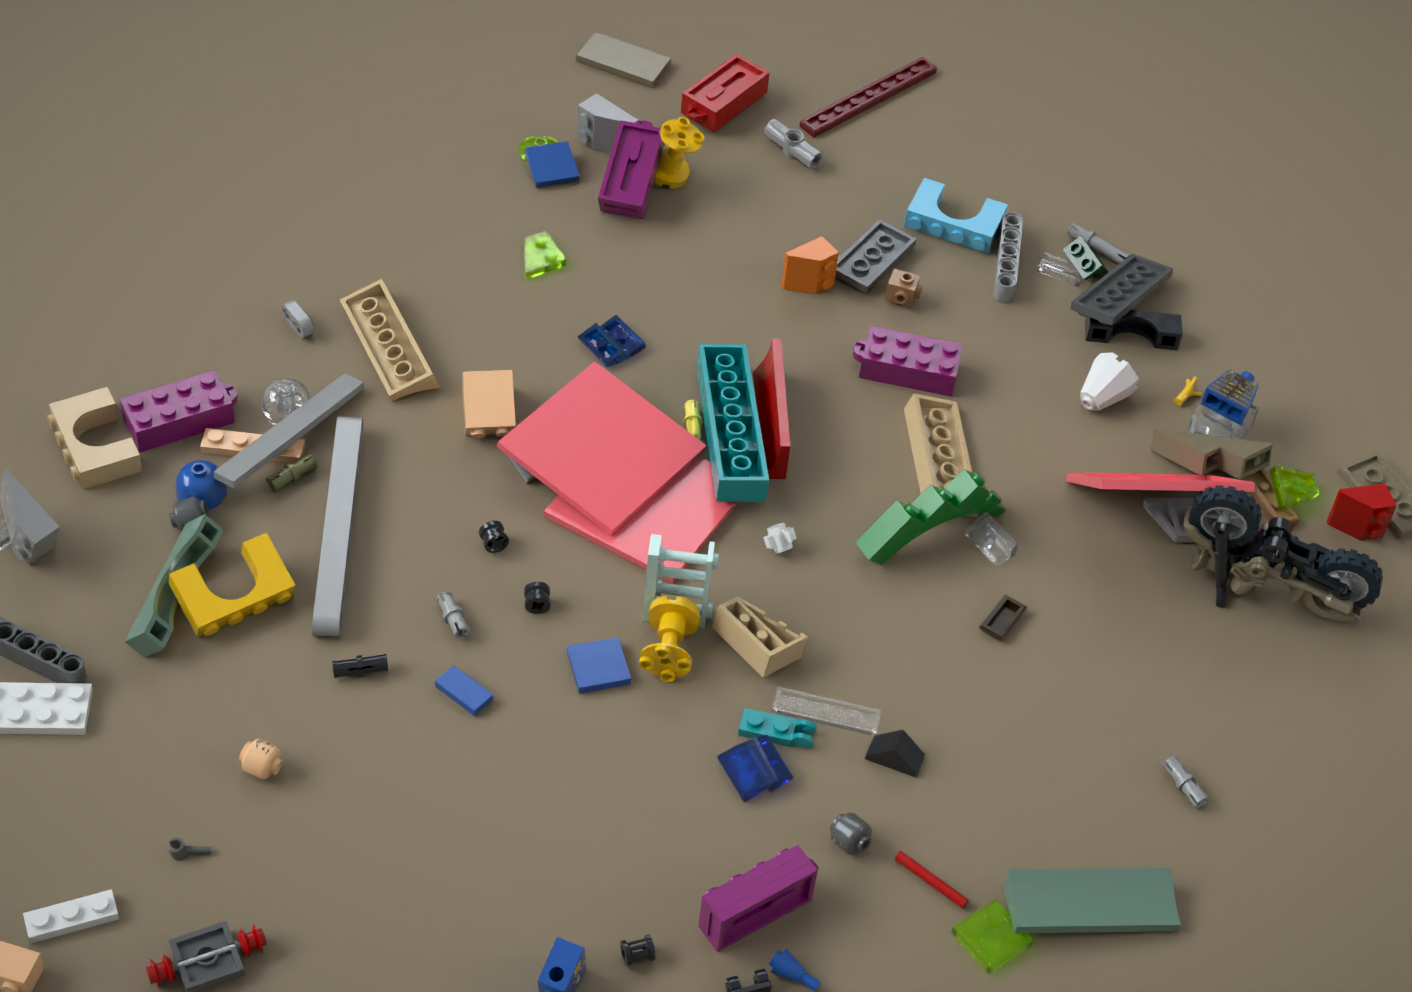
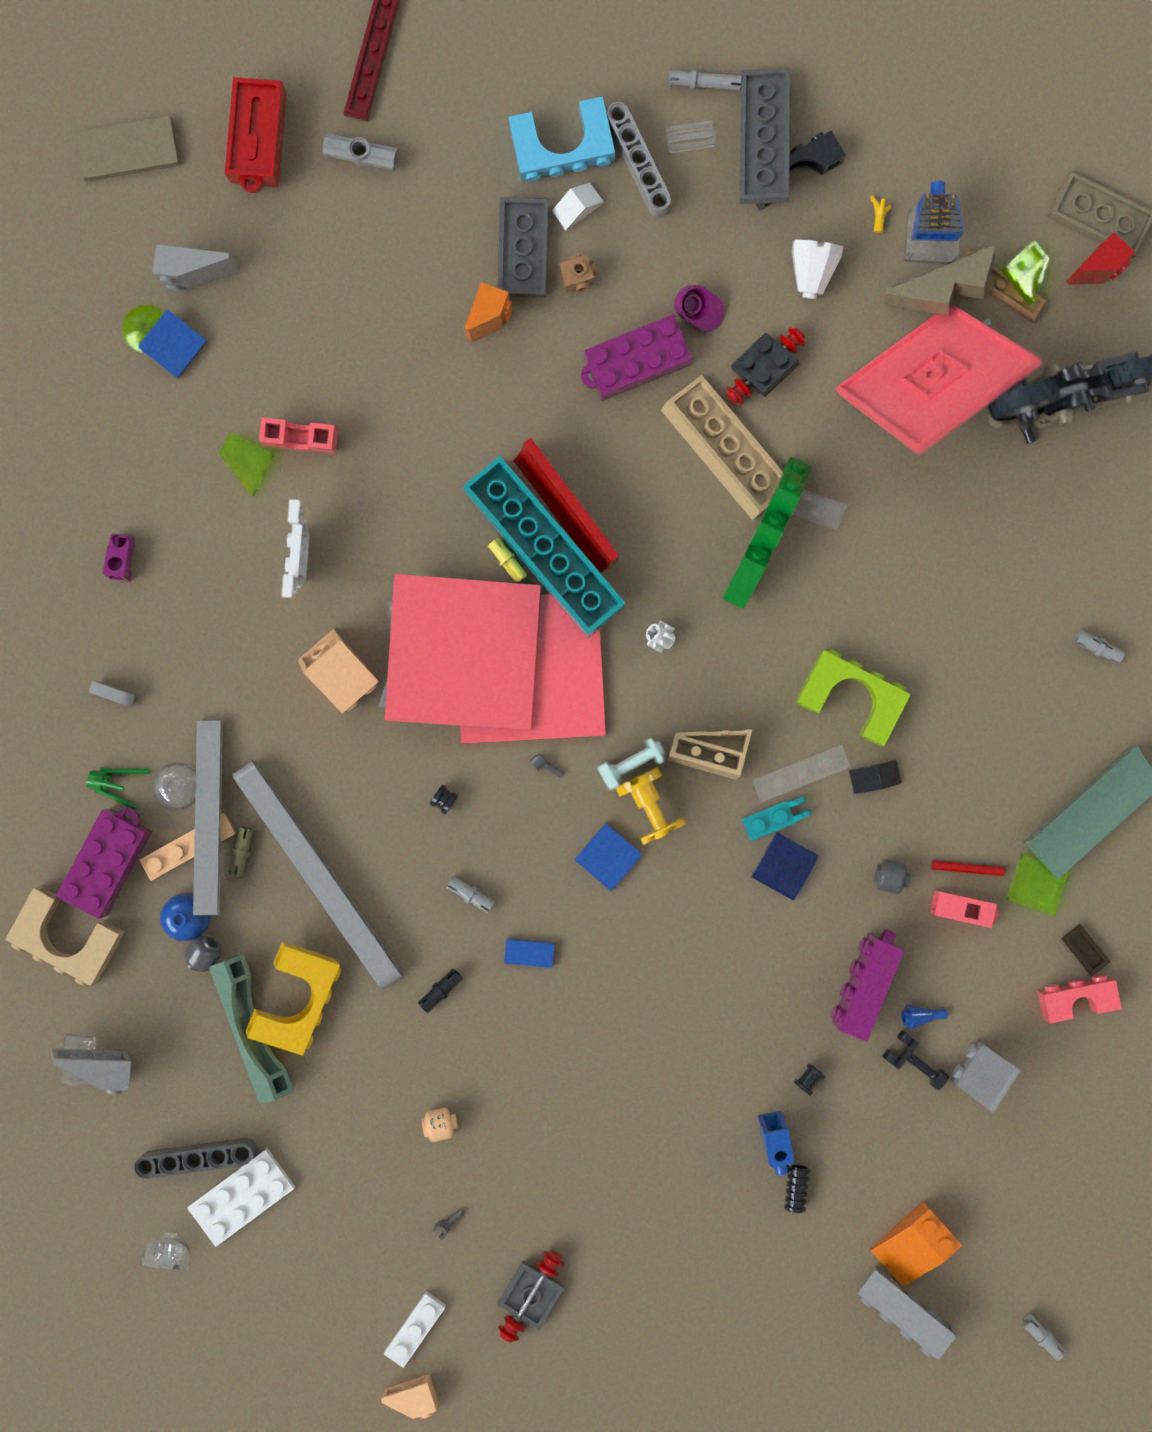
camera: 30 degrees left, 40 degrees up
(231, 364) = (102, 782): none -> green plant
(387, 249) = (119, 557): none -> magenta leg
(388, 341) = (202, 657): tan arch -> none
(533, 313) = (299, 543): none -> white wing
(537, 597) = (520, 833): black wheel -> none
(582, 248) = (310, 438): none -> coral arch
(598, 562) = (539, 761): none -> dark grey hand
(612, 341) = (378, 519): clear blue slope -> none
(631, 169) = (253, 310): magenta piece -> none
(680, 138) = (276, 262): yellow piece -> none
(902, 903) = (964, 909): none -> coral brick
(915, 650) = (887, 698): none -> lime arch
(936, 256) = (577, 205): none -> white slope
(988, 360) = (699, 307): none -> magenta cap
(1002, 617) = (875, 583): dark brown tile -> none
(1015, 422) = (765, 365): none -> black plate
(1085, 259) = (708, 113): bracket -> none

